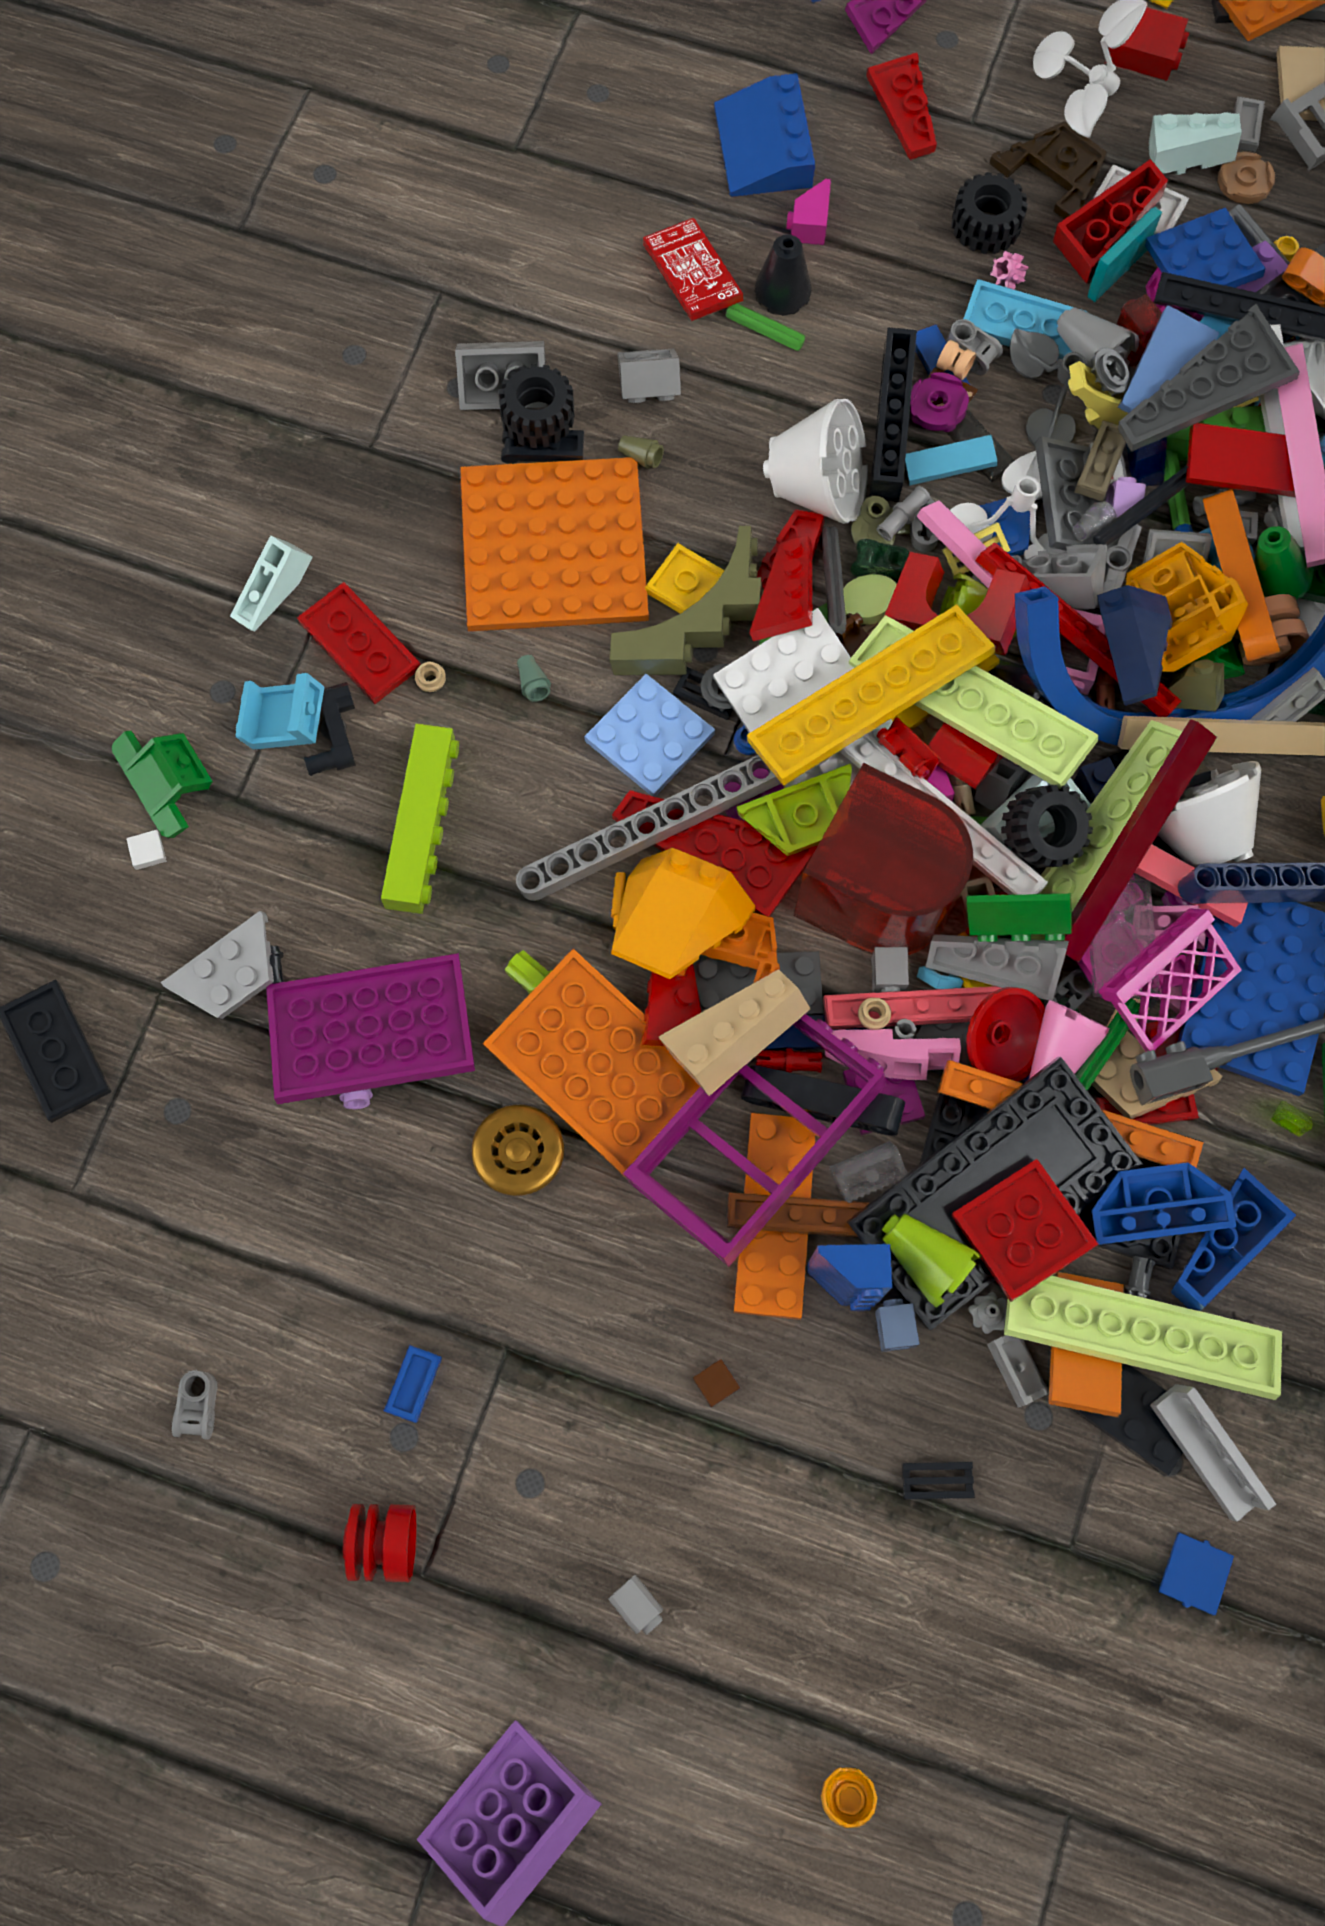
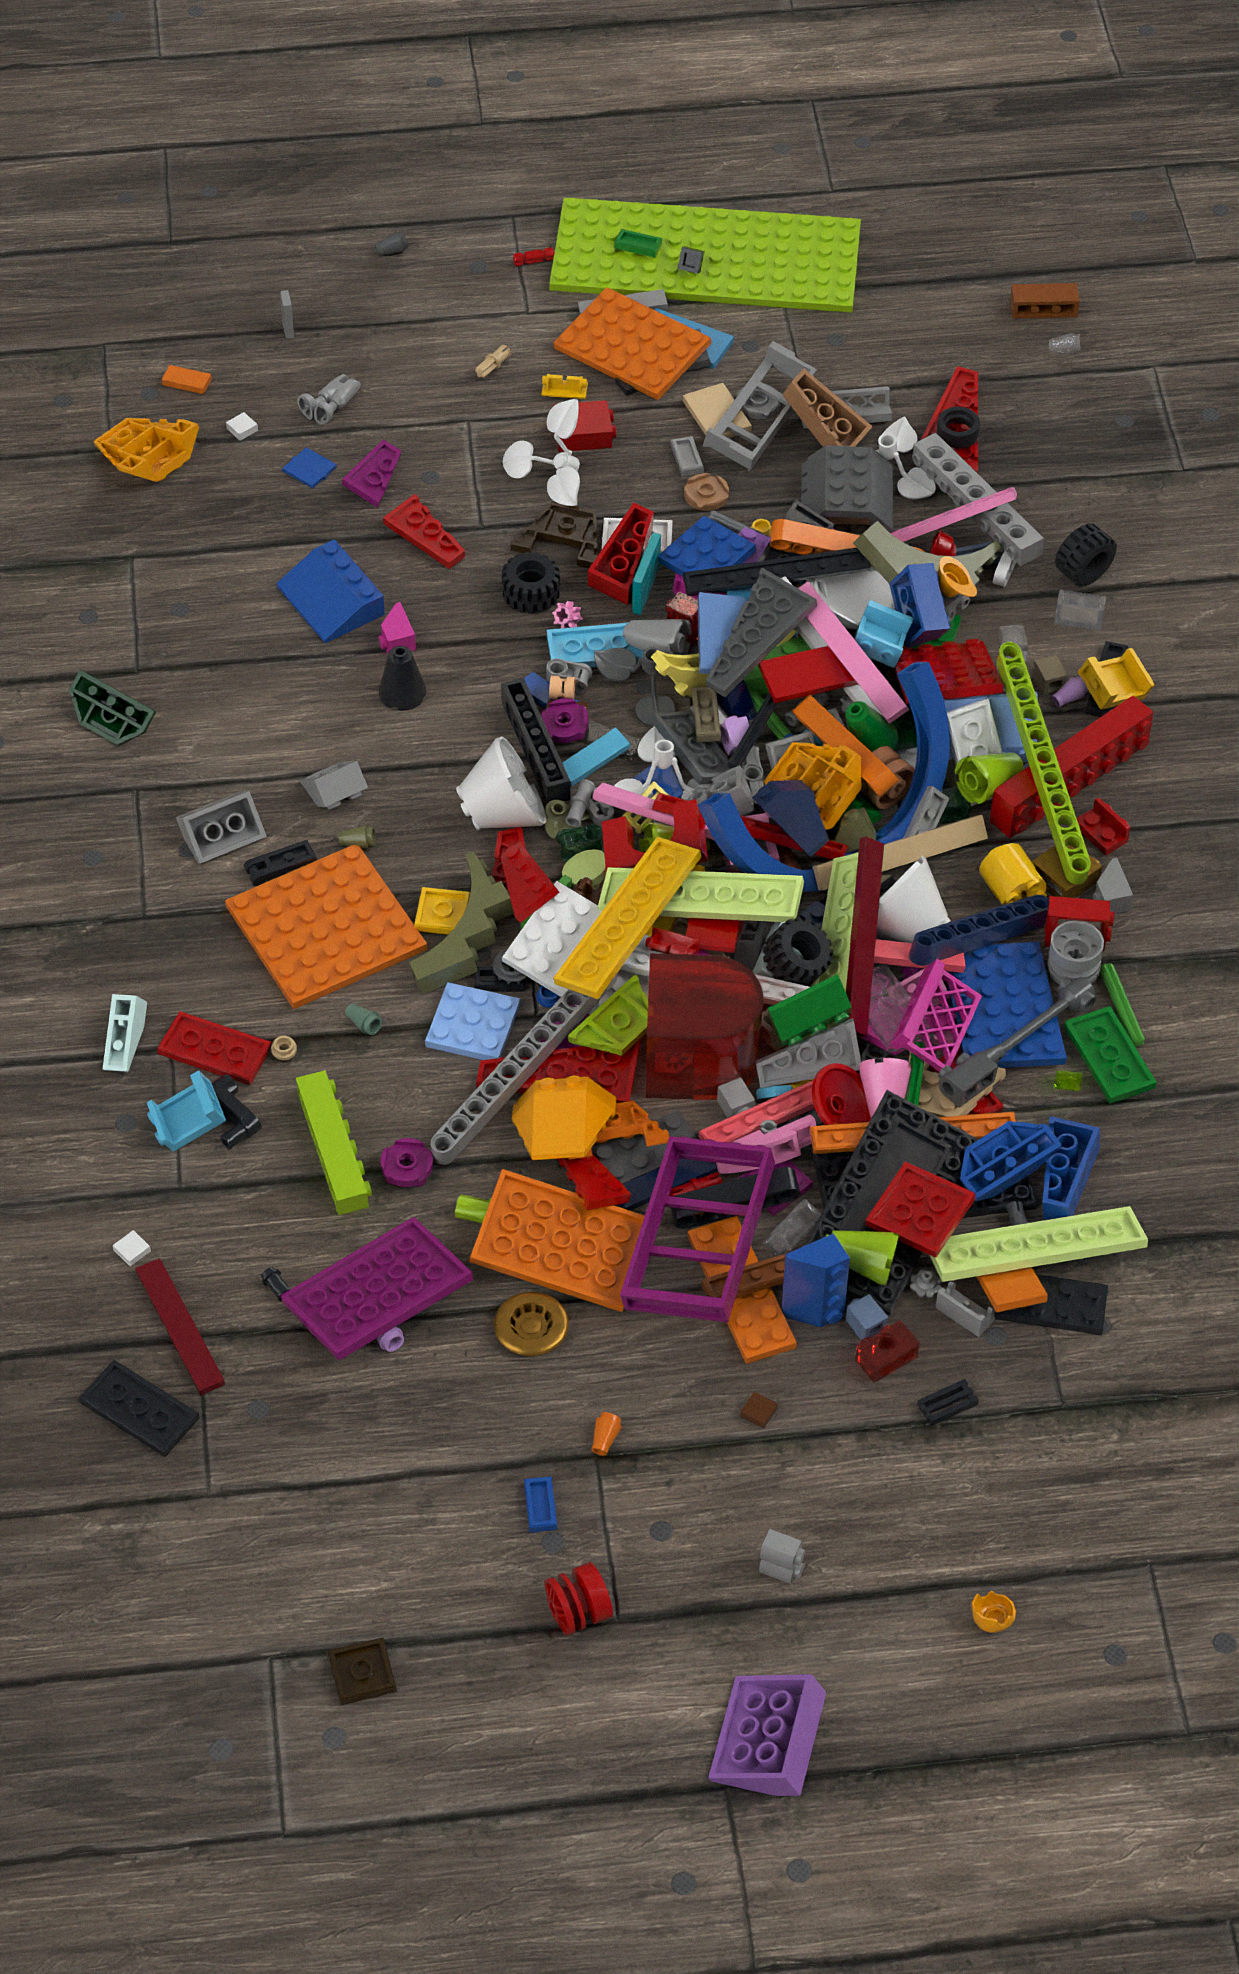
camera: 25 degrees left, 20 degrees down
(114, 1500) = (362, 1671): none -> dark brown tile
(146, 971) = (180, 1326): none -> dark red tile
(161, 775) = (114, 1194): green plate -> none
(195, 1408) = (389, 1585): light grey piece -> none
(228, 970) = (246, 1297): light grey wing -> none
(455, 182) = (108, 710): none -> dark green wedge
(489, 898) = (409, 1175): none -> magenta plate
(528, 1330) = (605, 1432): none -> orange cone
(533, 386) = (261, 819): black tyre -> none
(618, 893) = (515, 1141): light orange animal -> none
(693, 269) = (327, 701): red tile -> none
(735, 1030) = (649, 1168): tan wedge -> none
(765, 326) = (406, 720): bright green axle -> none
(833, 579) = (553, 863): dark grey axle -> none
(877, 1005) = (741, 1124): tan plate -> none
(920, 1383) = (879, 1363): none -> clear red brick
(1094, 520) = (721, 754): clear cone -> none
(1116, 377) = (682, 650): dark grey gear -> none
(1193, 140) = (655, 480): light aqua wedge -> none
(1196, 1574) = (1154, 1383): blue piece -> none
(1211, 1452) = (1120, 1299): light grey fence -> none

